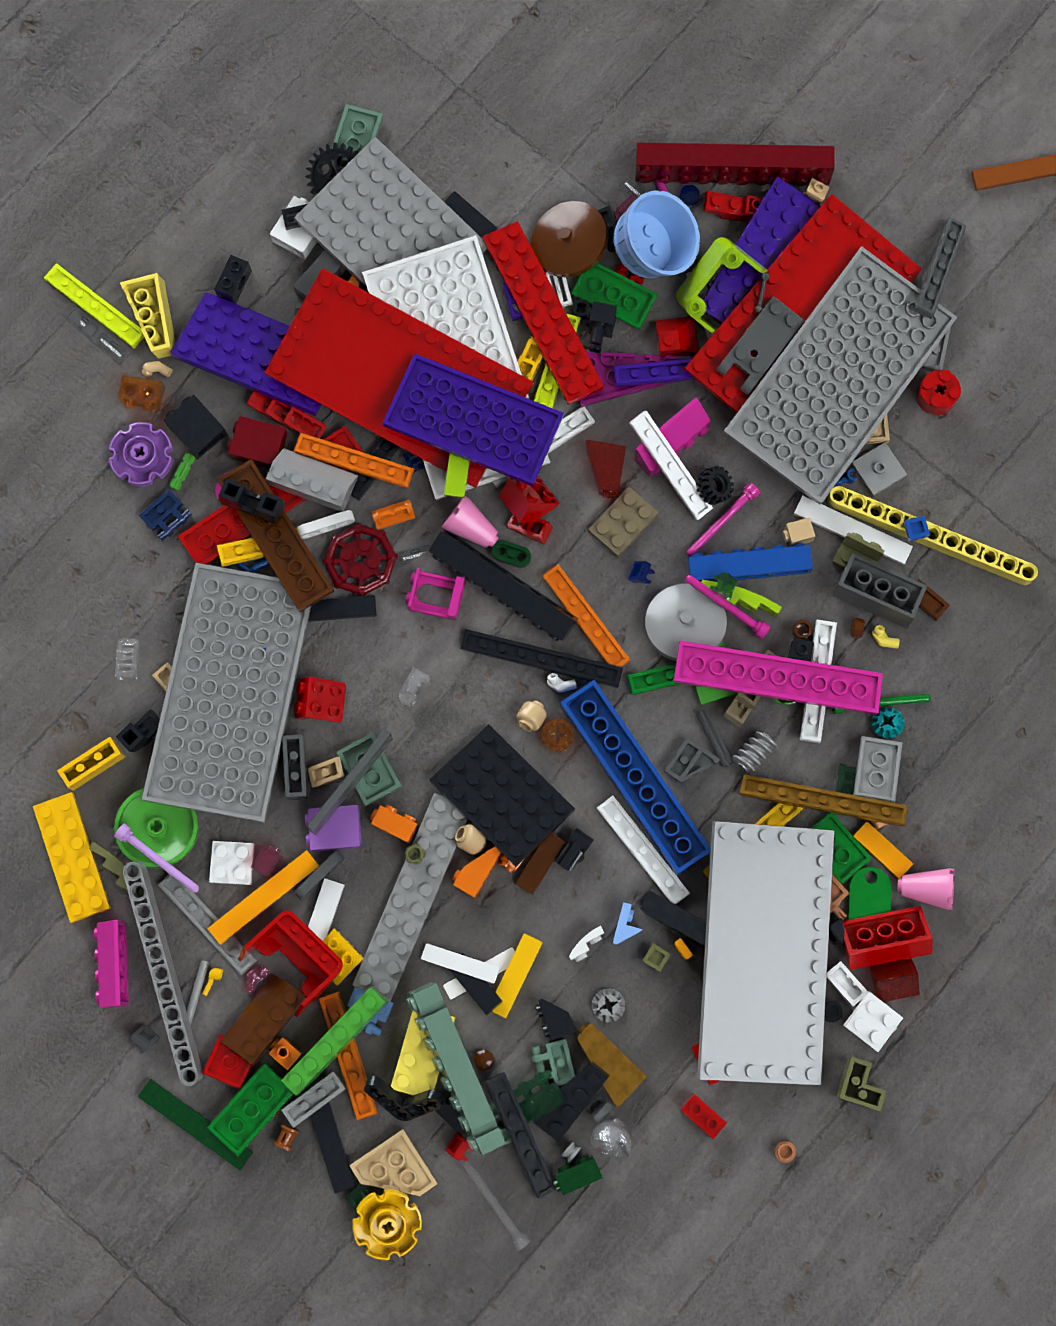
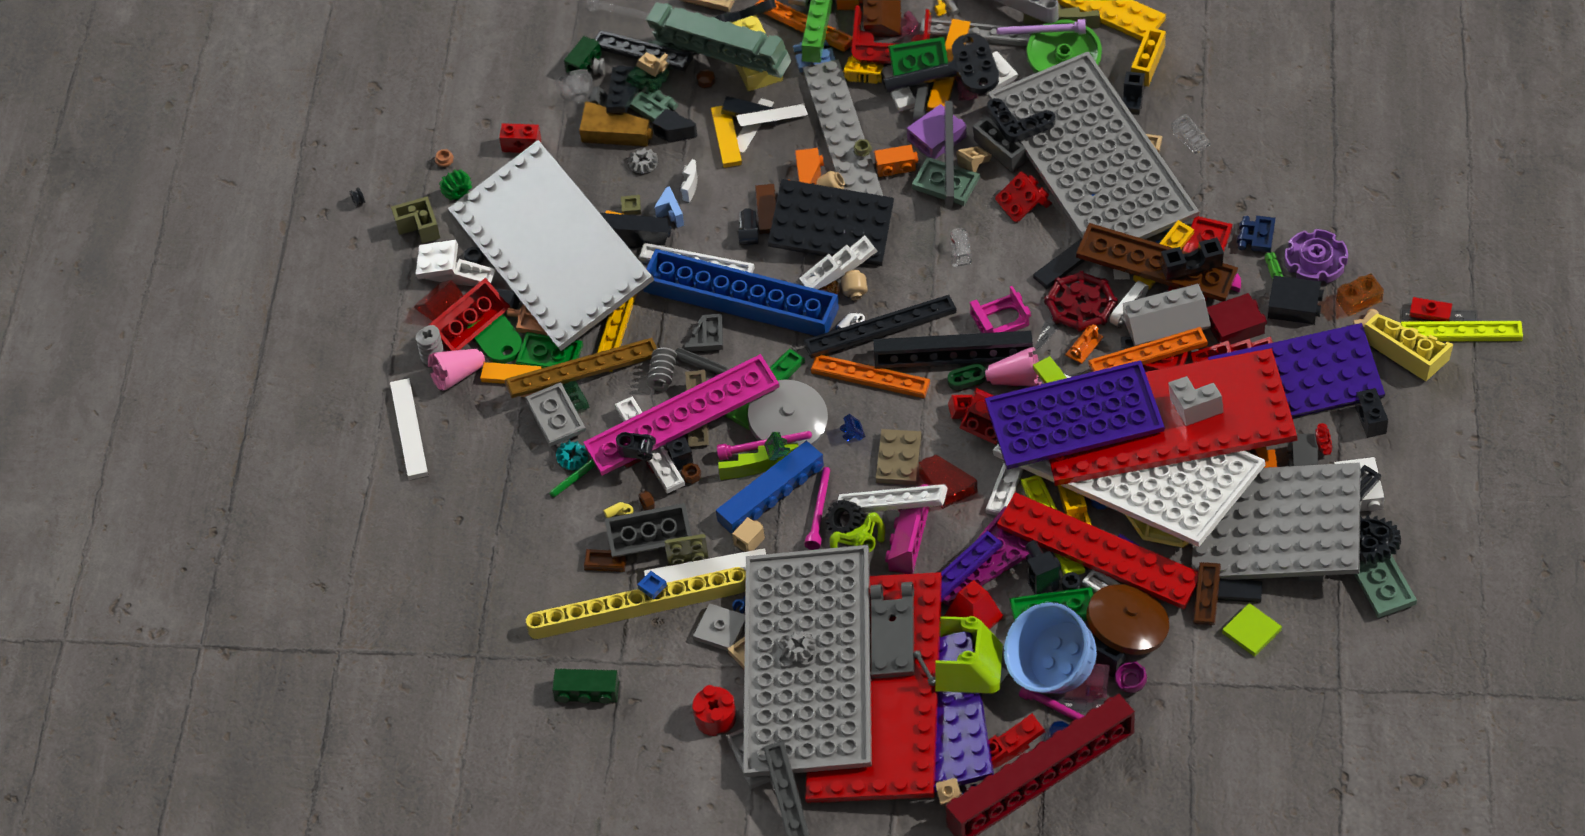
camera: 145 degrees right, 25 degrees down
(100, 340) = (1430, 309): none -> red plate
(251, 866) = (970, 63): none -> black piece
(274, 765) = (1014, 125): none -> black beam
(290, 281) = (1323, 439): none -> red gear
(290, 911) = (917, 55): none -> green tile
(375, 354) = (1194, 403): none -> light grey brick
(482, 174) = (1251, 629): none -> lime tile
(492, 219) = (1207, 593): none -> reddish brown tile
(528, 1099) = (652, 64): none -> tan bracket
(532, 740) = (836, 266): none -> white slope
(605, 192) = (1131, 677): none -> magenta hair
(717, 456) = (861, 535): none -> lime piece
(800, 1101) = (455, 185): none -> green gear
(837, 390) = (796, 653): none -> light grey gear
(840, 665) = (636, 447): none -> black piece
(895, 1164) = (357, 196): none -> black bush
(949, 923) = (428, 342): none -> light grey piece
(1006, 858) = (409, 429): none -> white tile
(1023, 489) = (585, 685): none -> dark green brick

